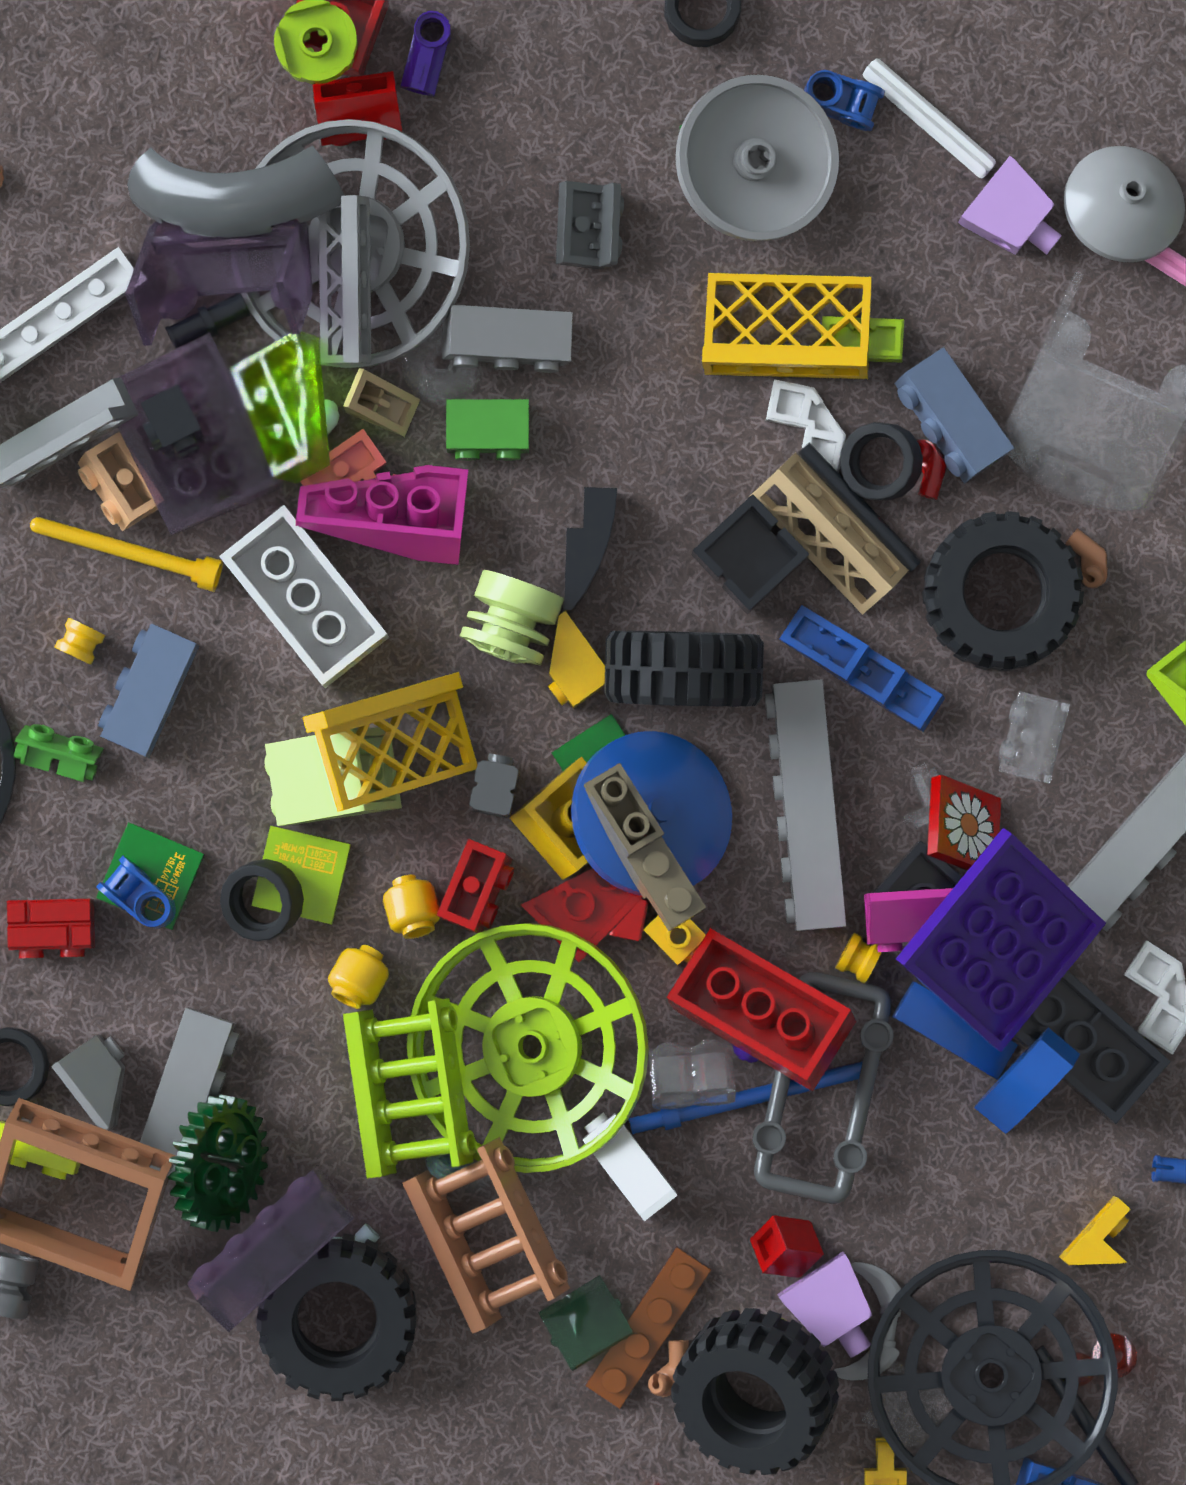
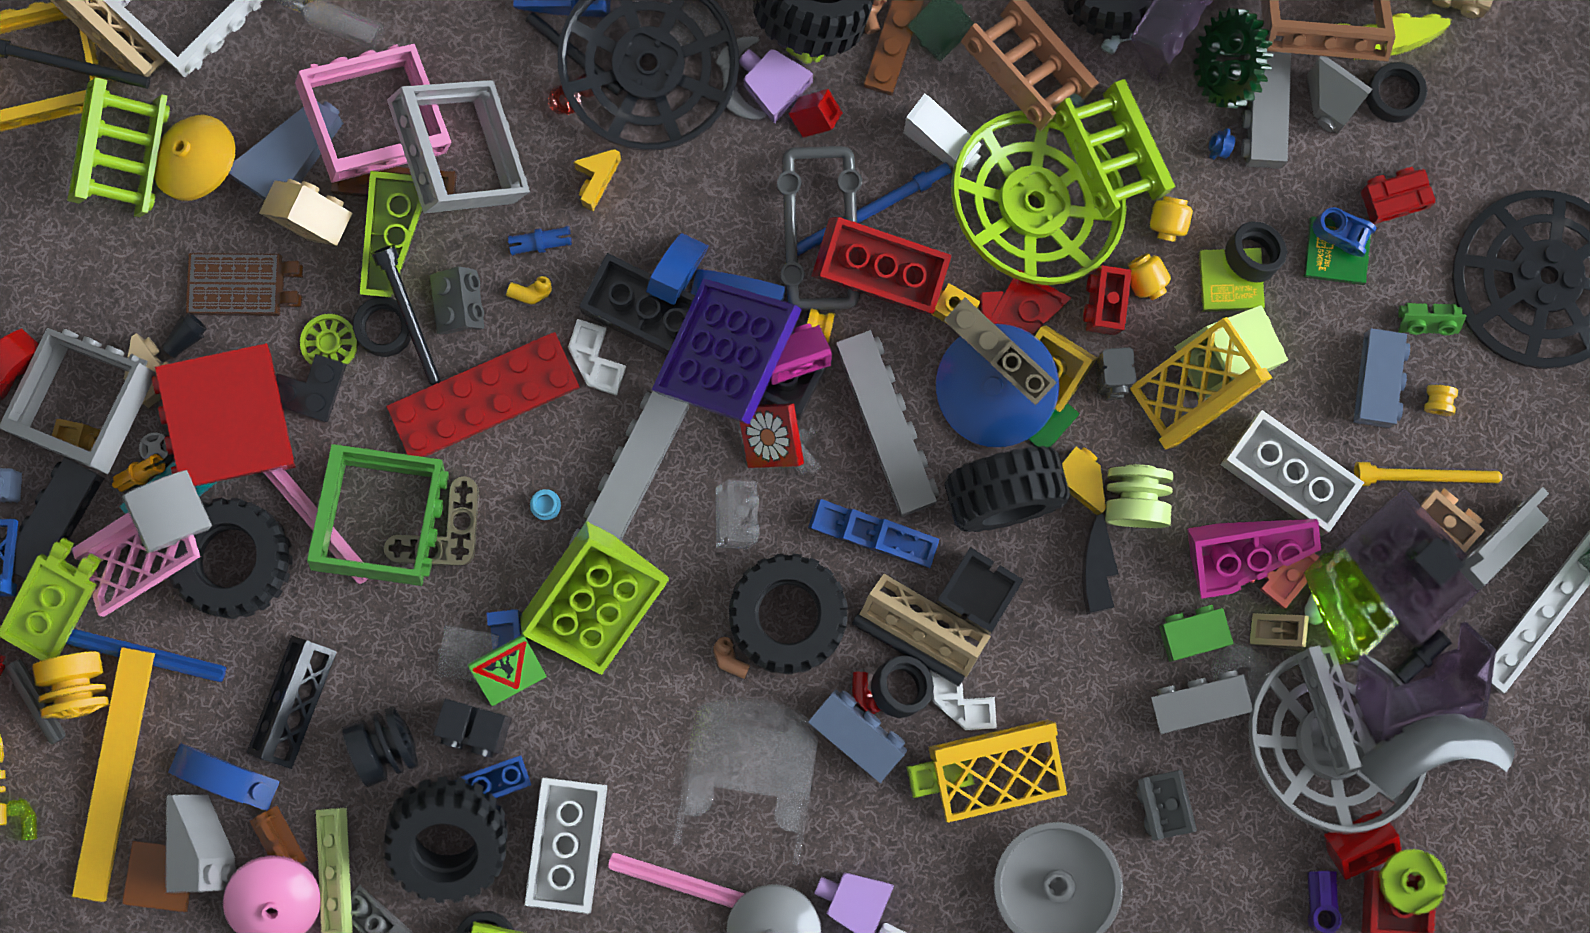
camera: 165 degrees right, 5 degrees down
(261, 1058) = (1221, 144): none -> blue plate
(692, 1075) = (916, 211): clear brick -> none

